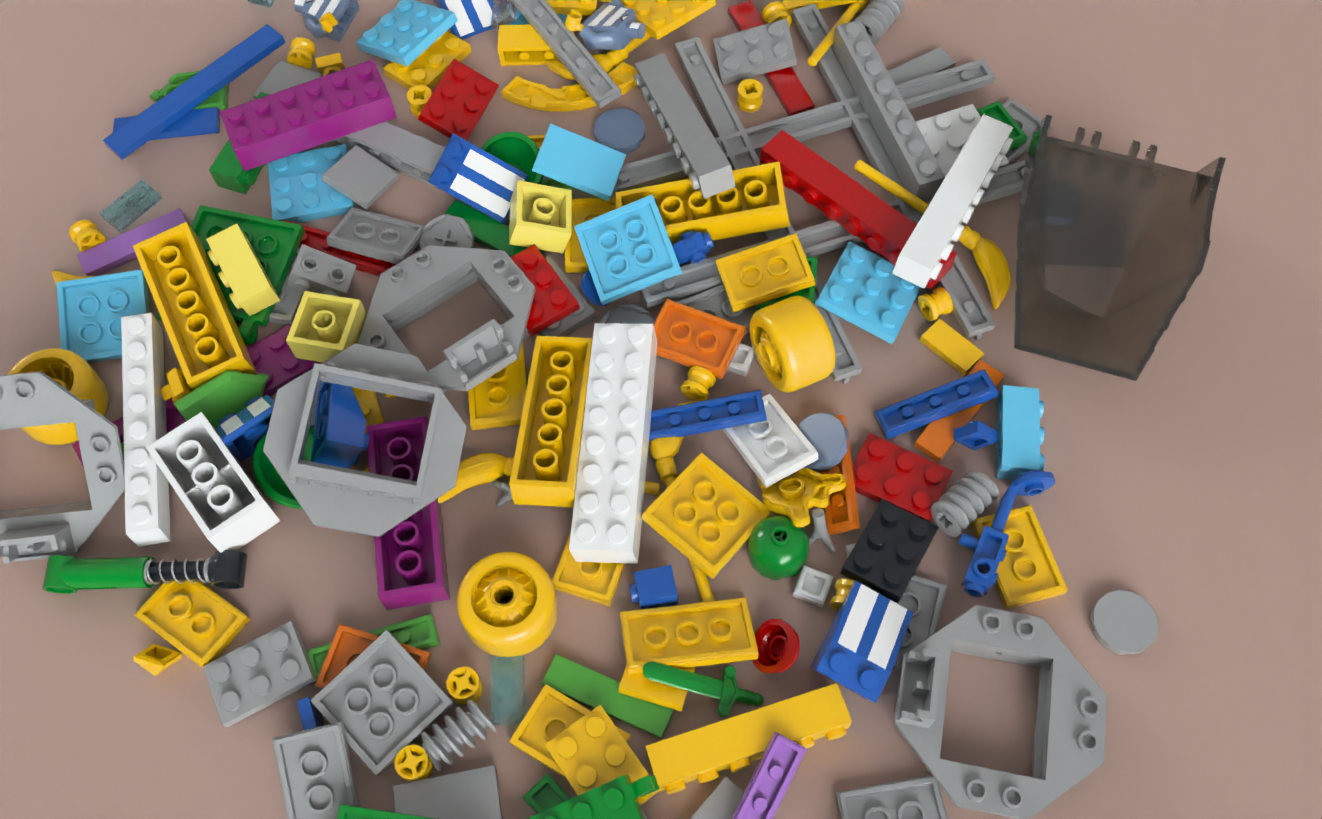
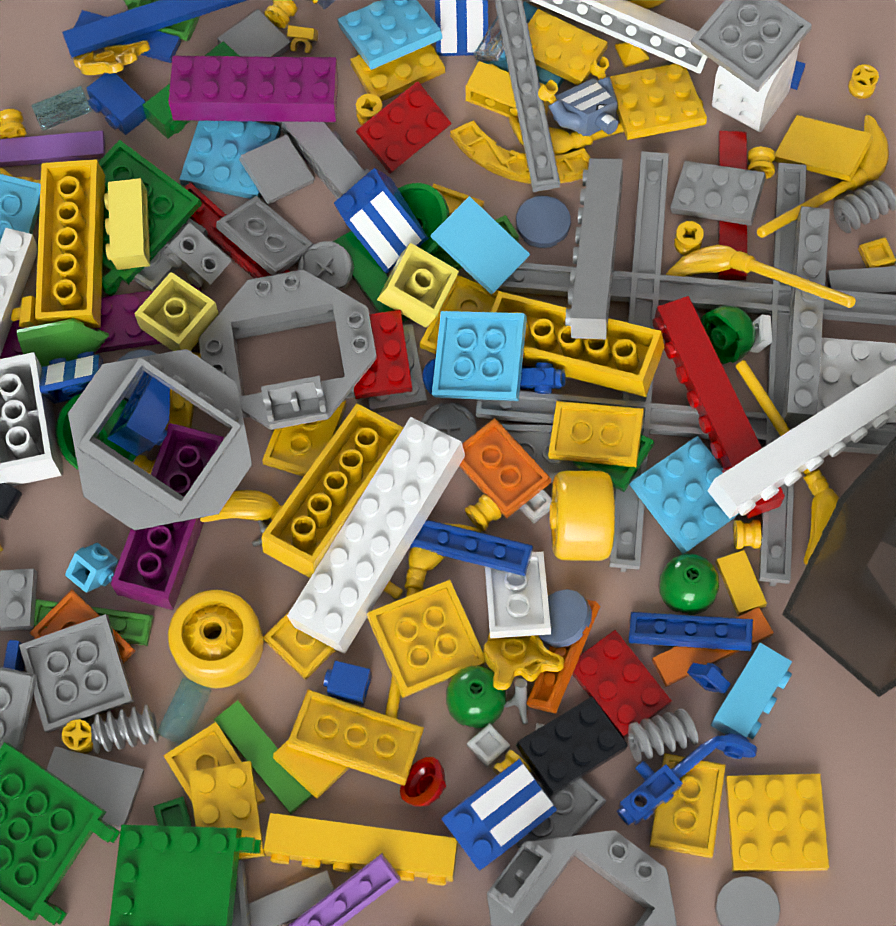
camera: 25 degrees right, 5 degrees up
(159, 145) = (111, 60): none -> yellow tile
(182, 179) = (116, 102): none -> blue brick
(350, 593) = (92, 567): none -> medium azure brick
(459, 680) = (145, 686): yellow wheel -> none
(724, 690) = (362, 798): green sword -> none
(791, 95) = (722, 257): none -> yellow piece
(831, 145) = (729, 332): none -> green cylinder
(852, 143) = (763, 333): none -> white tile
(907, 49) = (877, 253): none -> yellow tile
(910, 366) = (689, 584): none -> green cylinder
(1102, 535) = (776, 823): none -> yellow plate

